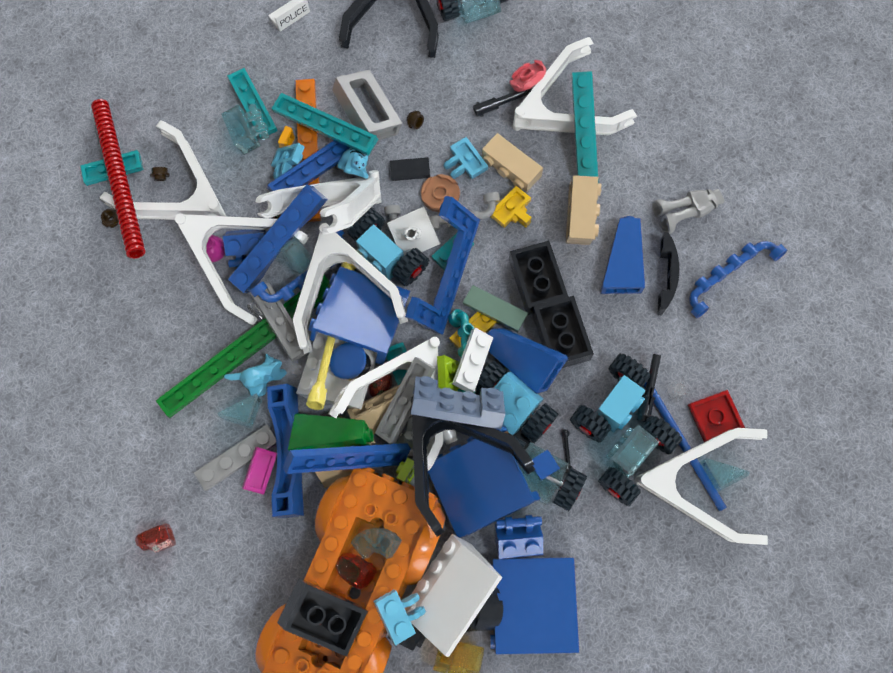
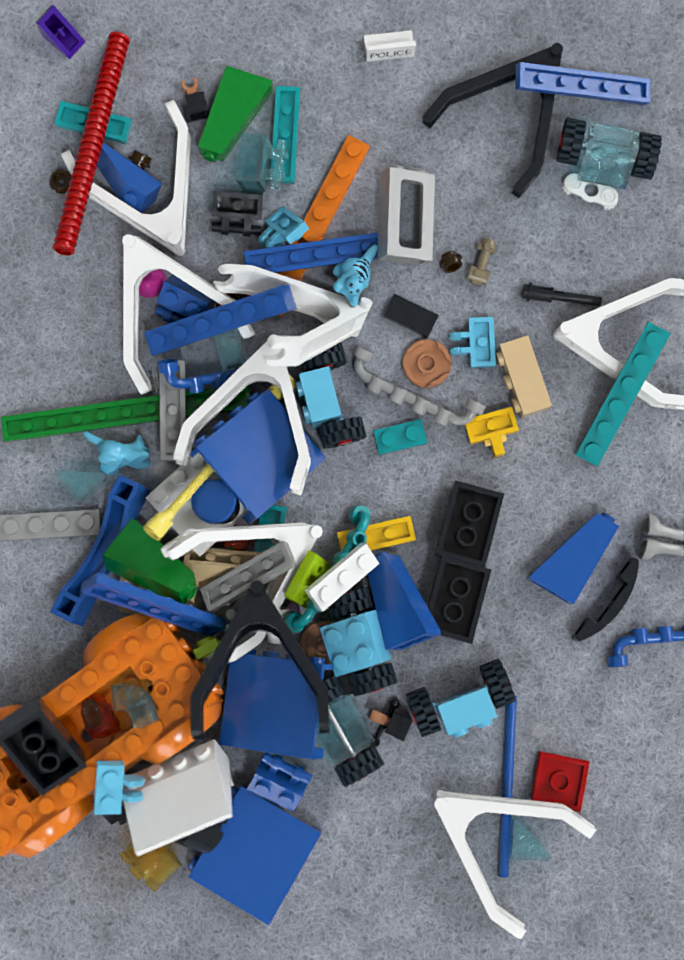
camera: 25 degrees right, 10 degrees up
(54, 123) = (59, 32): none -> dark purple slope
(157, 188) = (128, 180): none -> blue slope
(178, 116) = (197, 105): none -> black piece
(206, 104) = (233, 110): none -> green slope
(246, 162) = (237, 205): none -> black brick
(259, 470) = (64, 553): dark pink tile -> none
(287, 137) = (298, 201): light orange tile -> none
(325, 124) = (346, 213): teal plate -> none
(414, 231) = (369, 395): white tile -> none
(436, 316) = (336, 504): blue plate -> none
(438, 117) = (479, 274): none -> dark tan bar
(456, 406) = (293, 620): sand blue piece -> none
(491, 24) = (606, 195): none -> white piece
(495, 308) = (403, 531): sand green tile -> none
(527, 76) = (605, 286): coral tile -> none
(545, 465) = (347, 728): blue tile -> none
(577, 446) = (397, 724): none -> black piece
(583, 210) = (561, 482): tan brick -> none
(634, 449) = (447, 768): brick -> none
(646, 407) = (489, 732): black pin -> none

